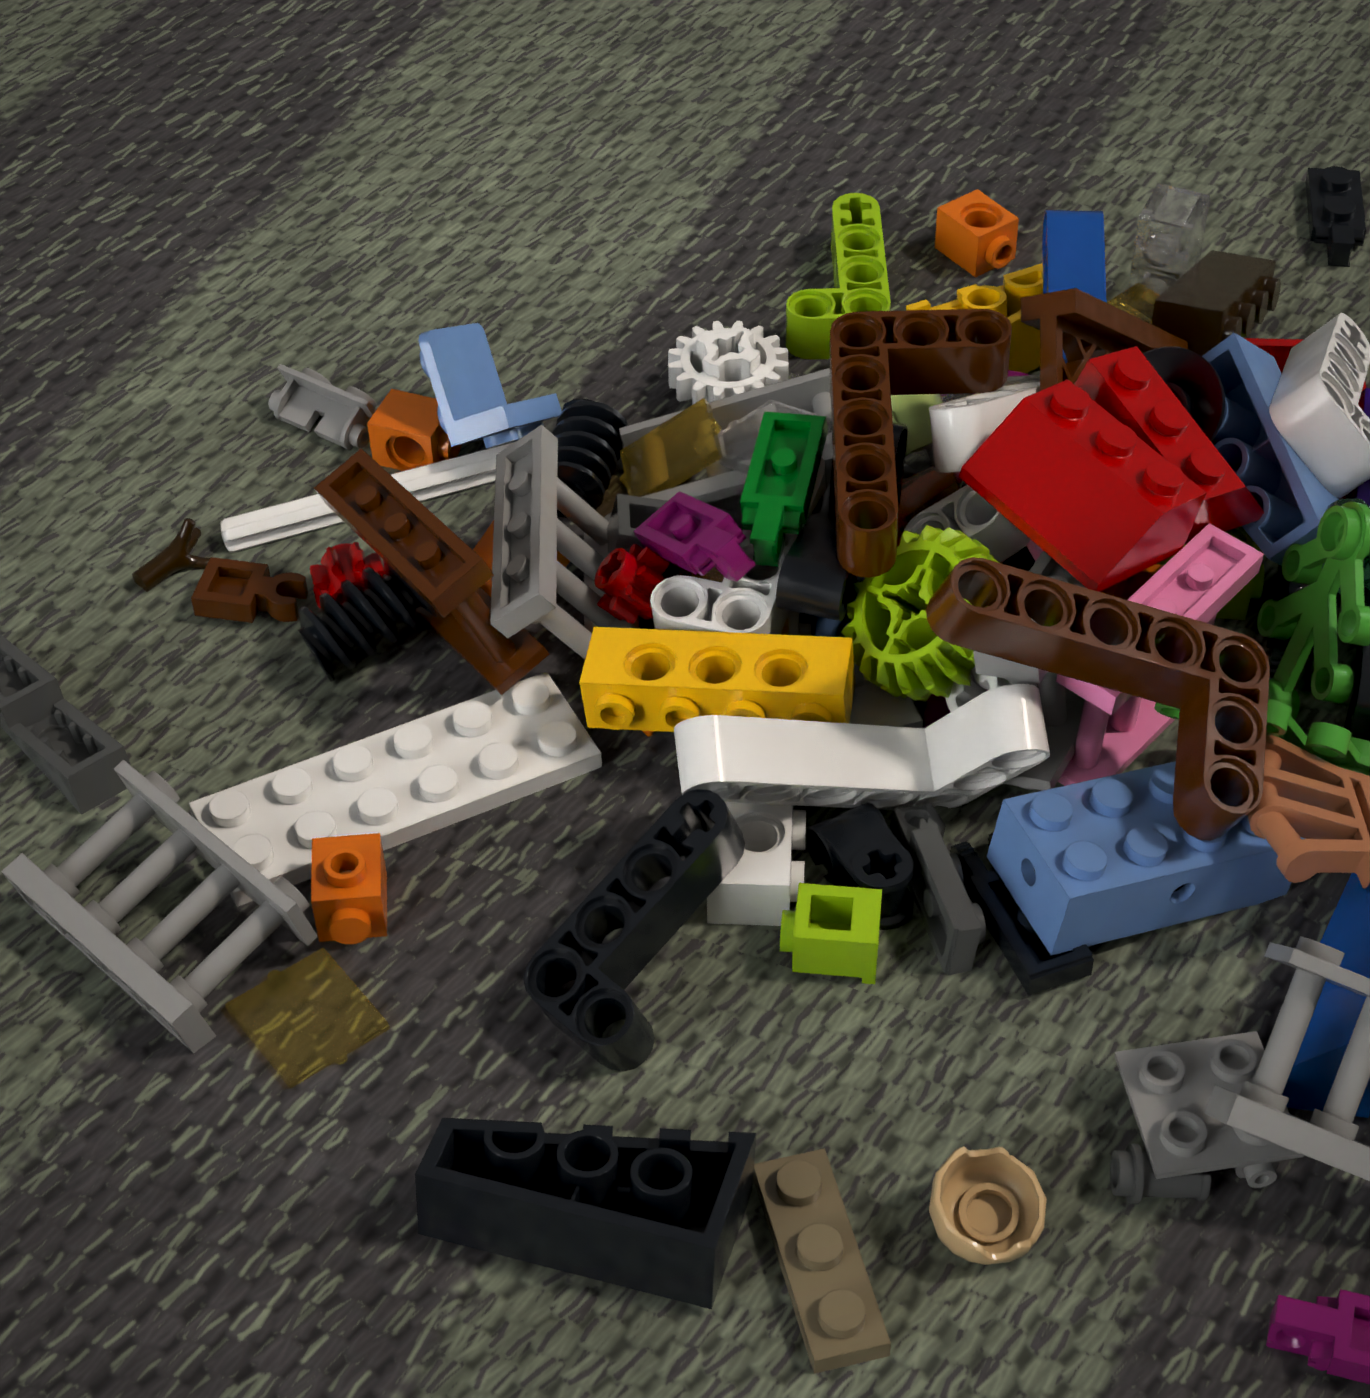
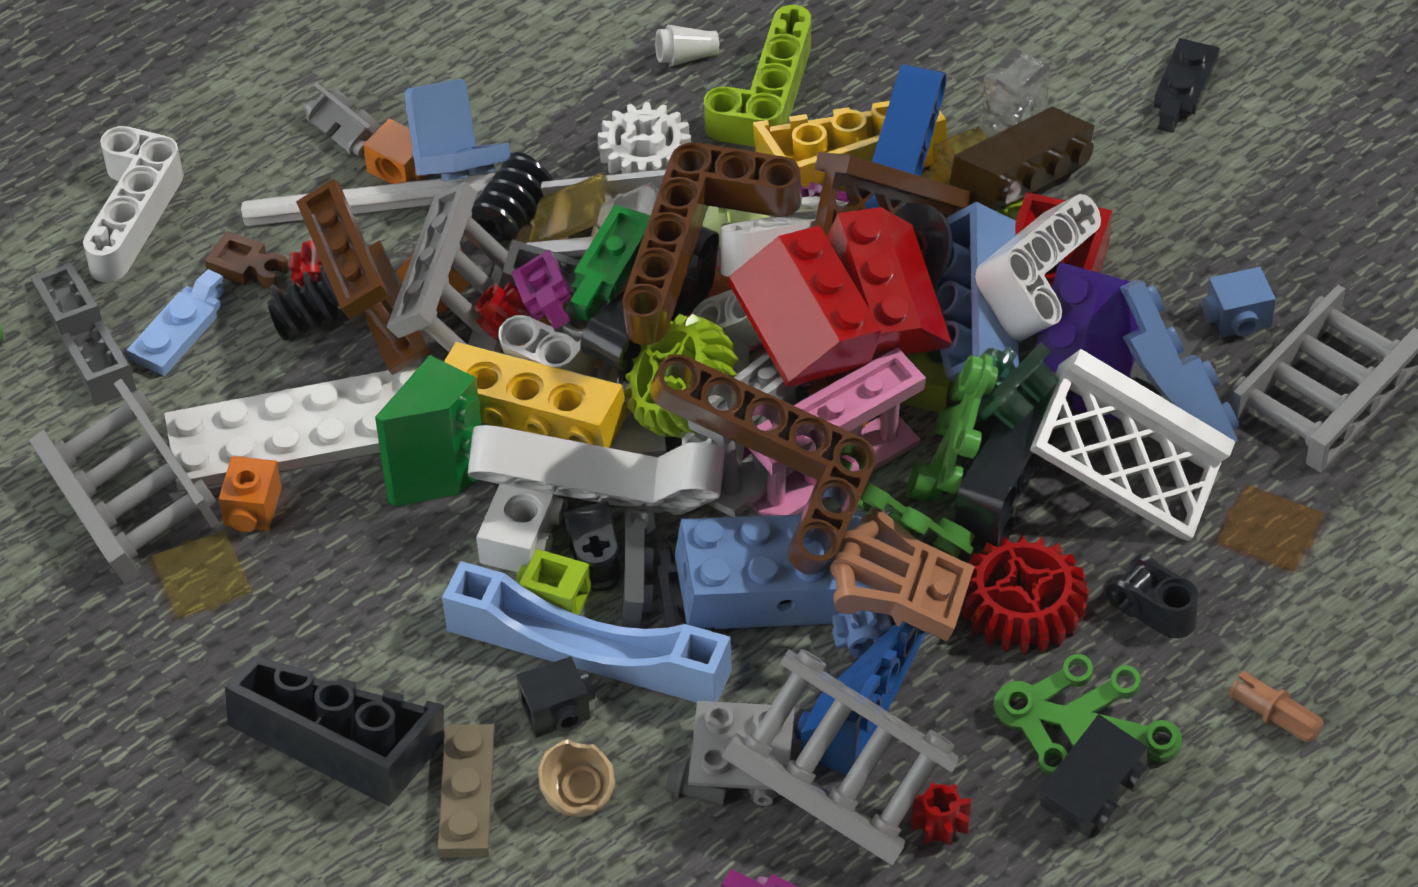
camera: 15 degrees right, 5 degrees up
(81, 515) = (148, 178): none -> white beam
(172, 558) = (203, 224): dark brown bar -> none
(174, 688) = (178, 325): none -> light blue hinge
(603, 752) = (428, 434): none -> green slope
(712, 844) = (467, 515): black beam -> none
(727, 260) = (683, 44): none -> white cone
(900, 1089) = (555, 696): none -> black brick
(976, 233) = (881, 52): orange brick -> none
(1052, 1002) = (667, 660): none -> light blue arch
(1287, 908) = (859, 630): none -> medium blue gear

